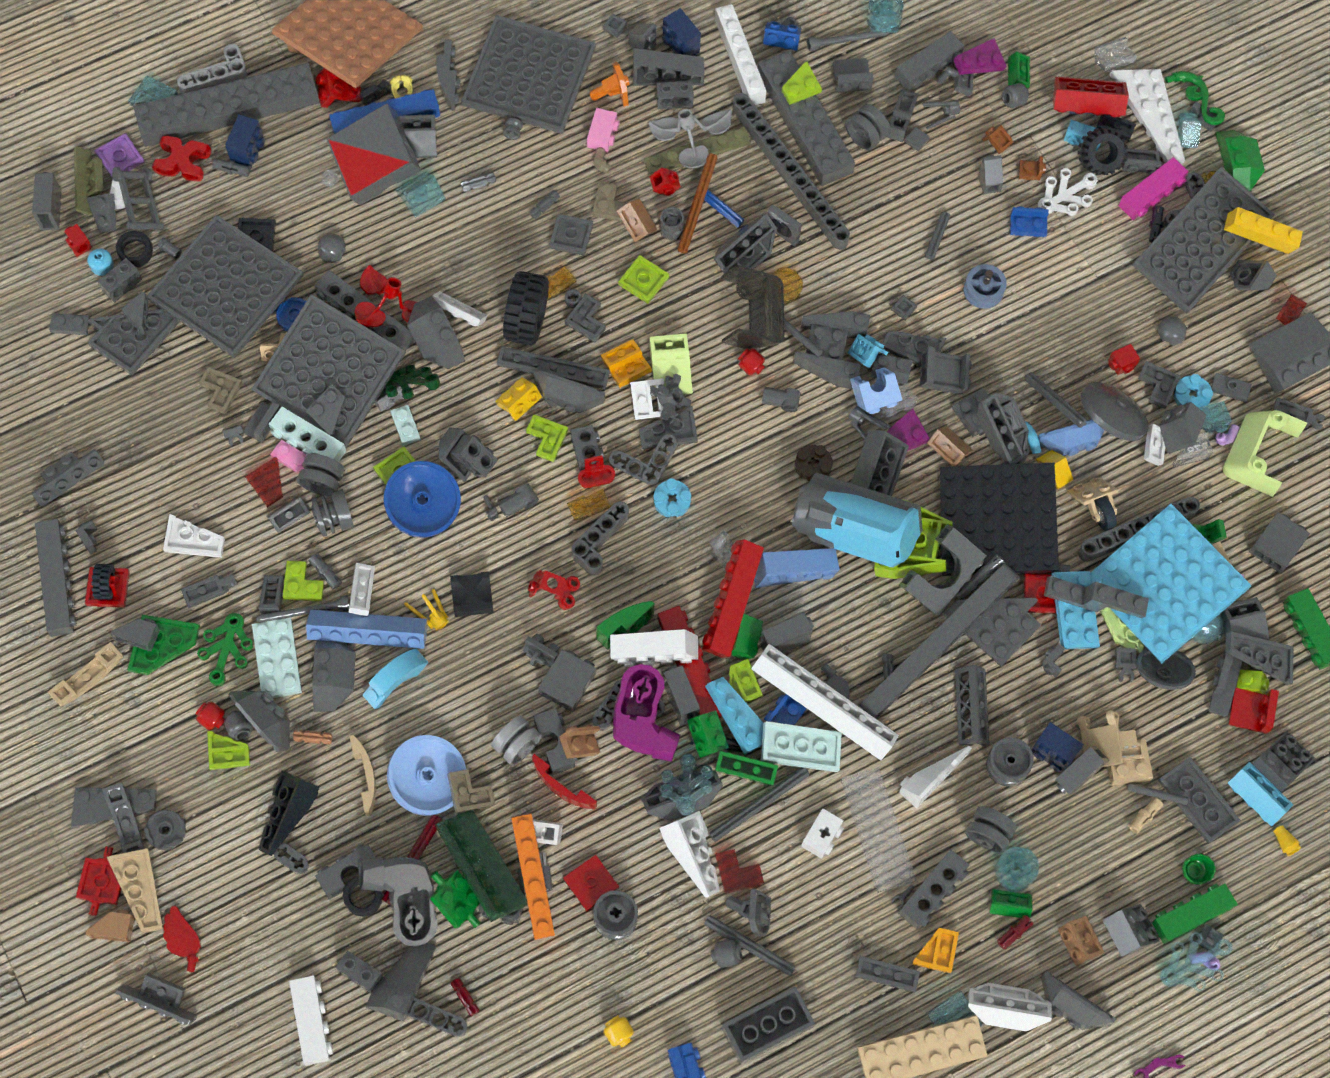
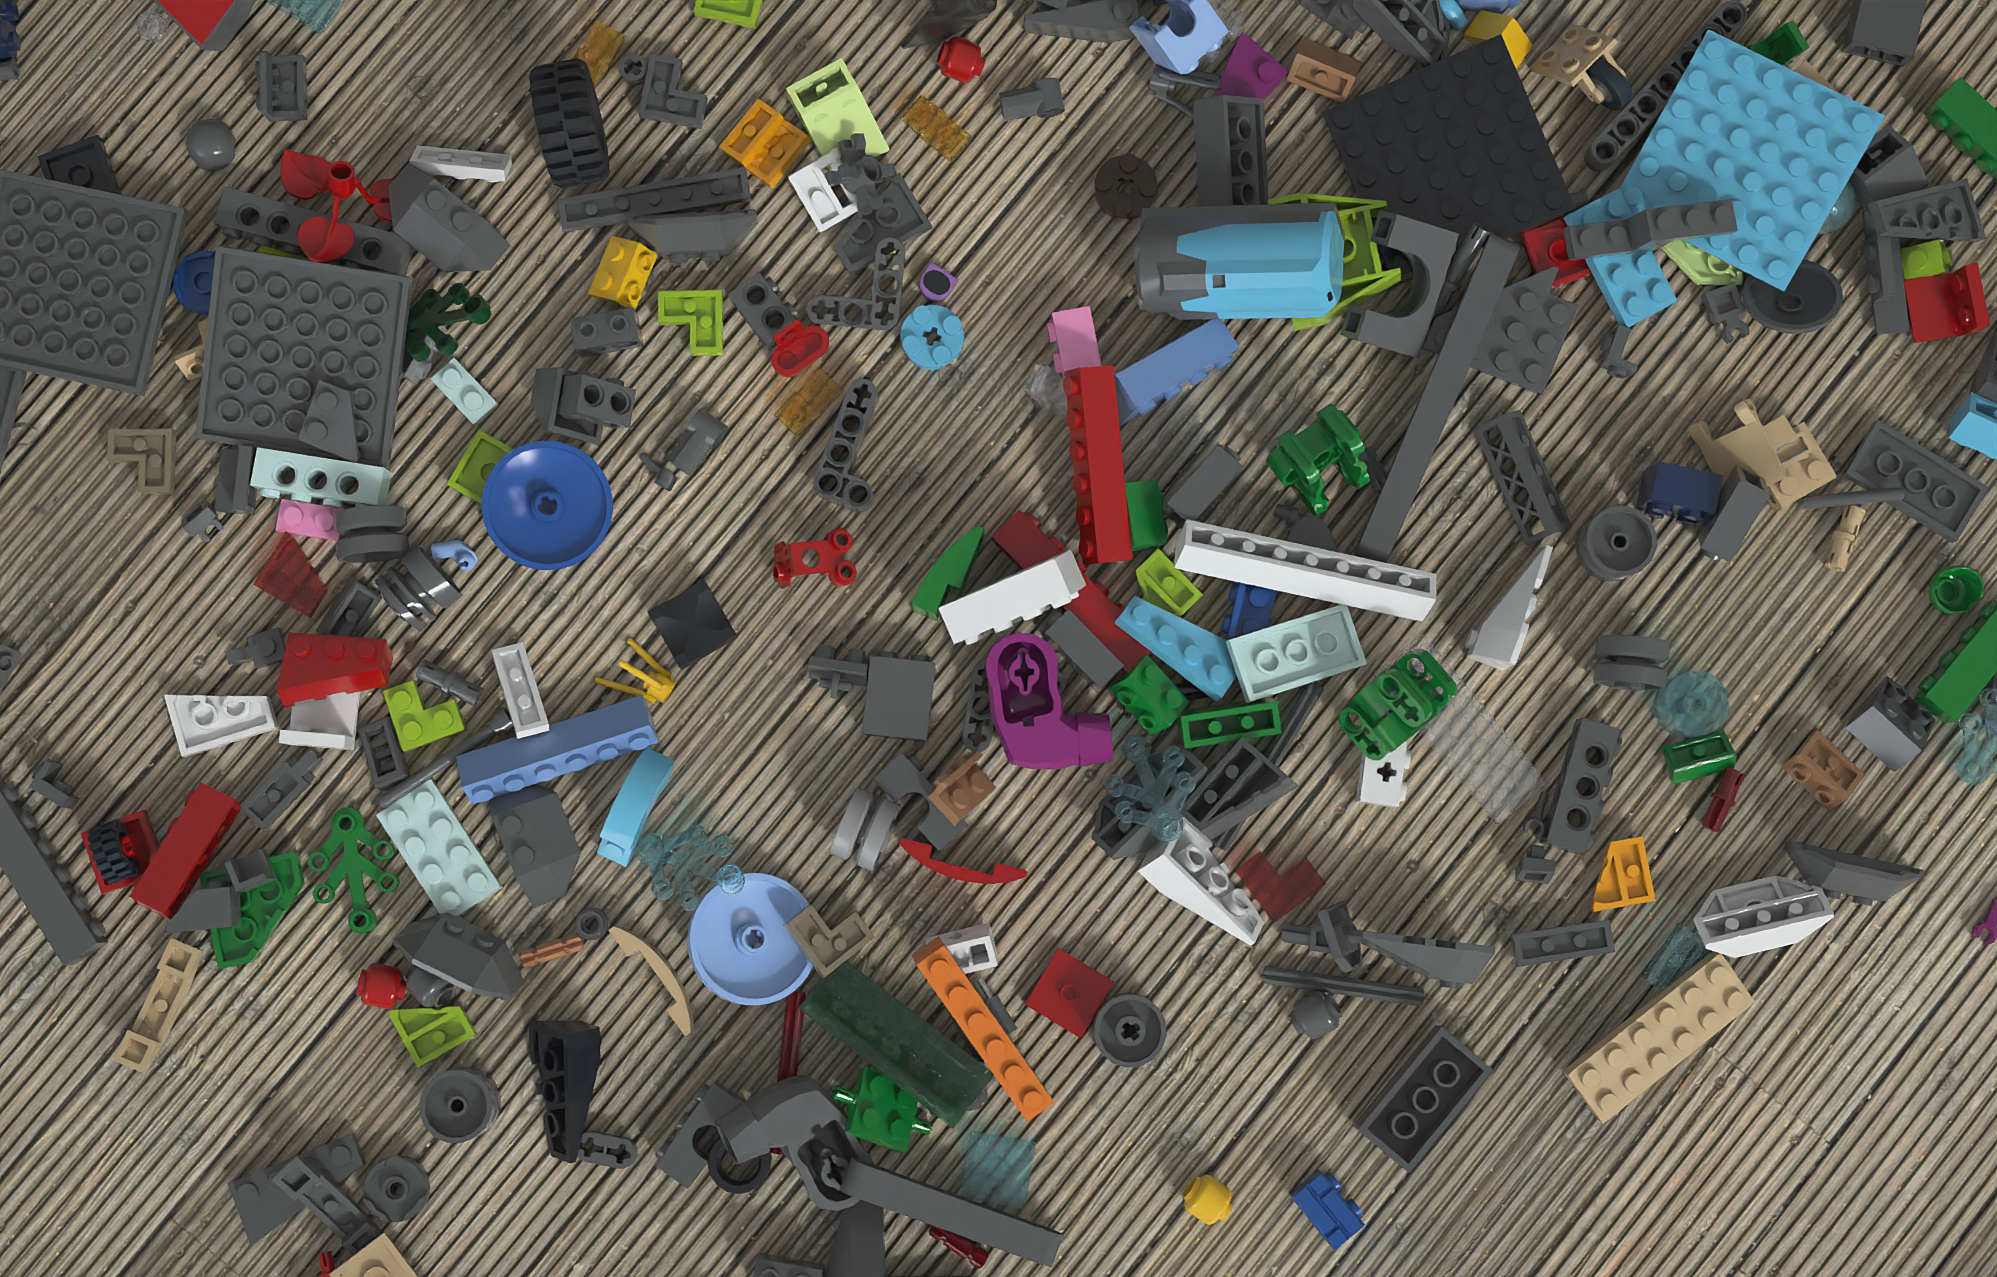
camera: 20 degrees left, 15 degrees up
(141, 598) = (185, 851): none -> red brick
(171, 623) = (250, 871): none -> dark grey panel
(212, 794) = (479, 1098): none -> dark grey wheel
(233, 514) = (263, 649): none -> dark grey plate
(248, 560) = (324, 722): none -> white bracket
(266, 534) = (331, 665): none -> red wedge
(341, 726) = (581, 923): none -> dark grey plate
(362, 505) = (458, 551): none -> light blue arm
(382, 234) = (282, 87): none -> dark grey bracket
(394, 706) = (688, 862): none -> clear light blue plant
(469, 974) = (951, 1212): none -> dark grey beam
(496, 424) = (606, 332): none -> dark grey brick
(506, 964) = (998, 1169): none -> clear light blue plate
(687, 472) = (937, 283): none -> tile
(722, 392) = (936, 129): none -> clear yellow slope
(733, 805) = (1236, 790): none -> dark grey wedge
(750, 527) = (1074, 339): none -> bright pink brick
(811, 950) = (1431, 958): none -> dark grey wedge
(846, 796) = (1397, 704): none -> green piece
(858, 638) = (1305, 454): none -> green piece
(889, 924) = (1534, 866): none -> dark grey tile

